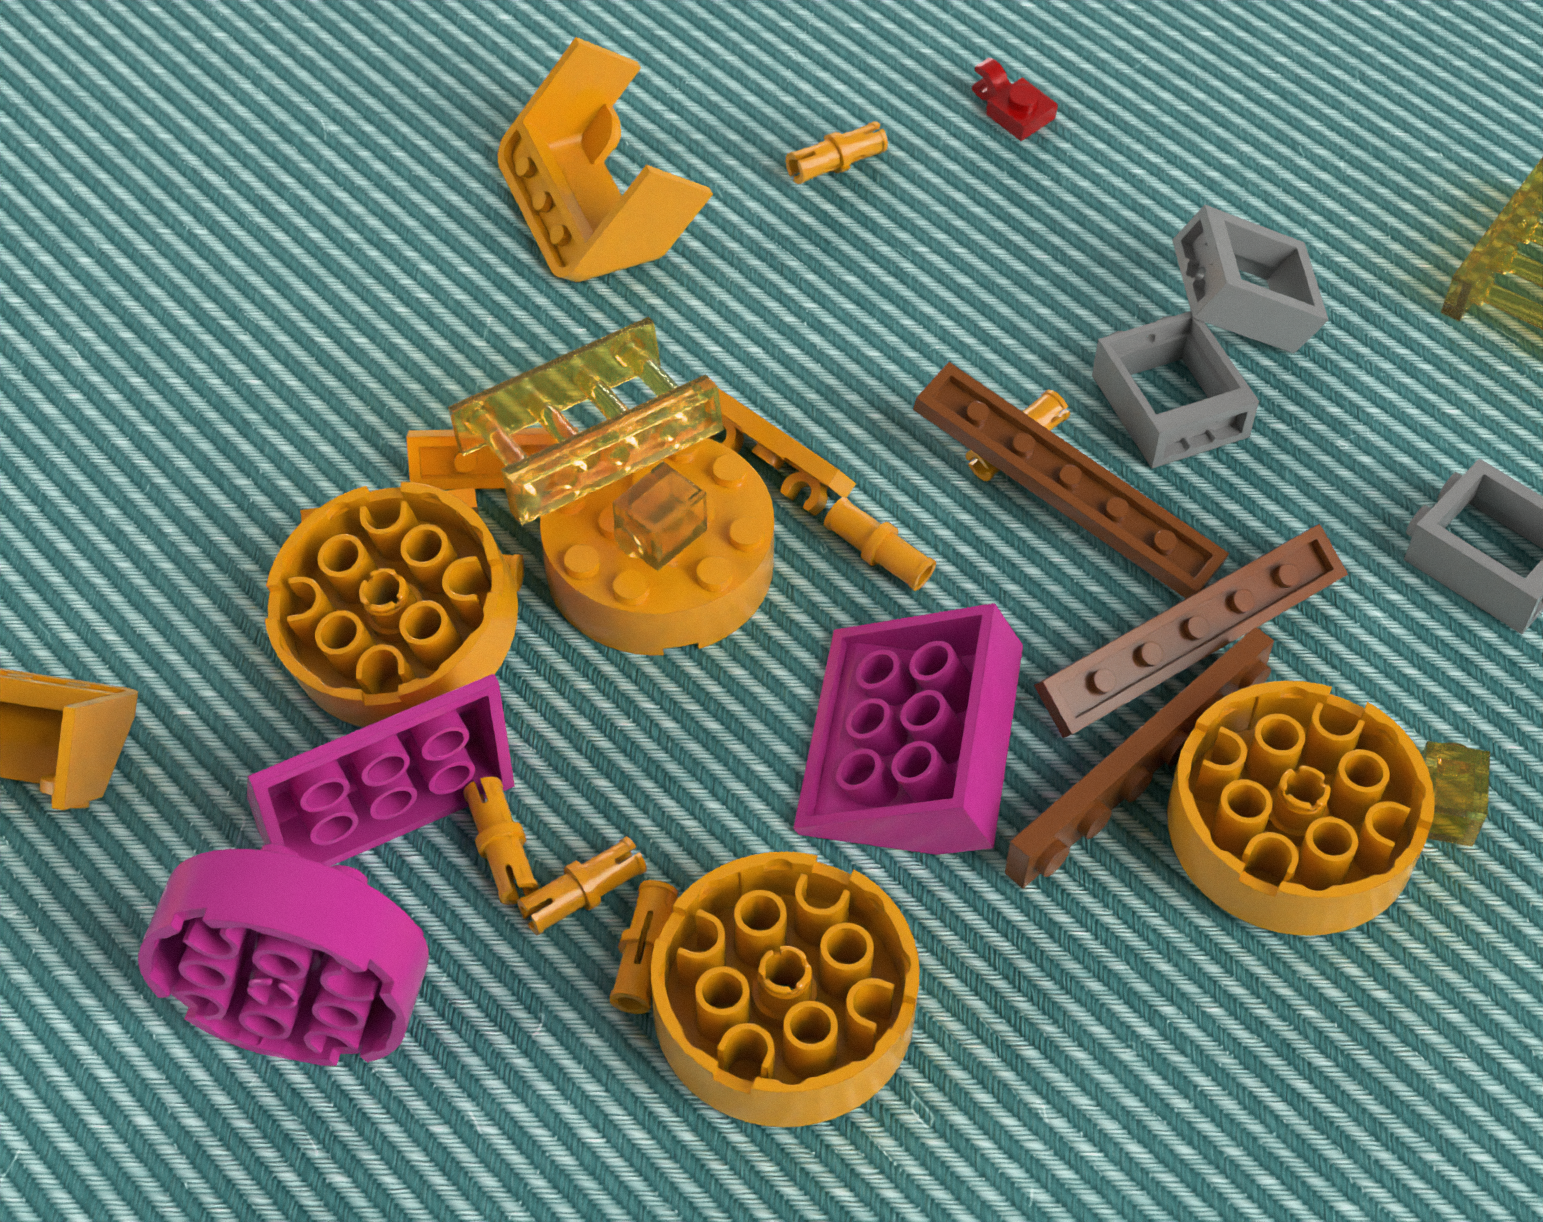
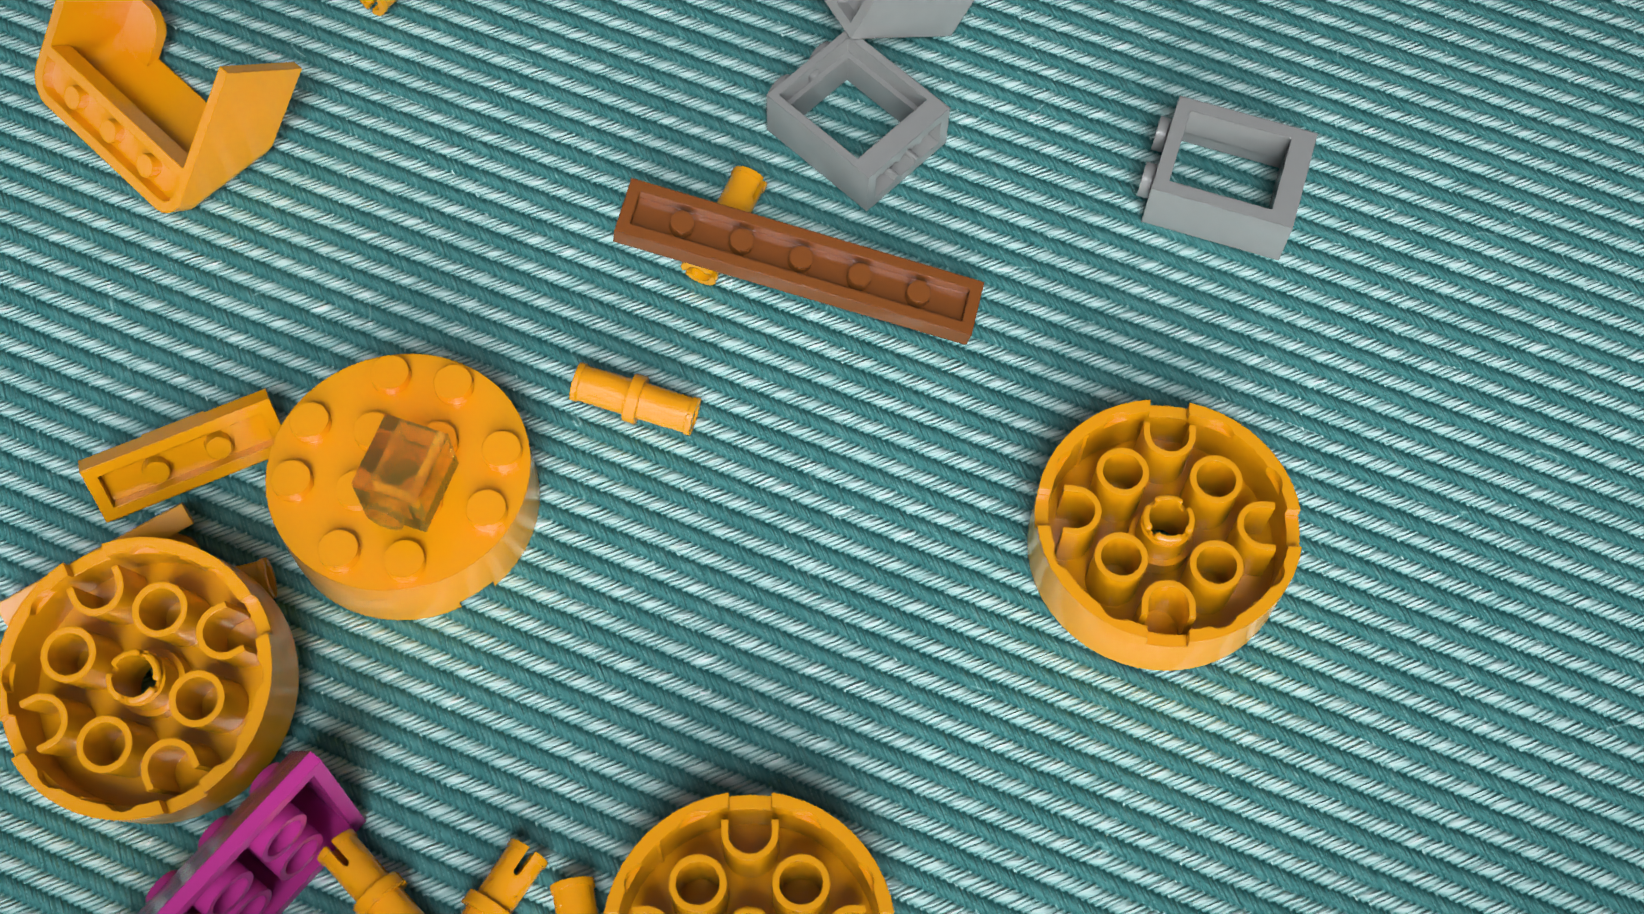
camera: 25 degrees left, 10 degrees up
(601, 453) = (310, 424): clear yellow fence -> none
(778, 447) = (480, 331): light orange plate -> none
(913, 733) = (755, 600): dark pink slope -> none
(1131, 766) = (984, 560): dark orange plate -> none
(1190, 631) = (978, 382): dark orange plate -> none
(1459, 790) = (1301, 448): clear yellow brick -> none

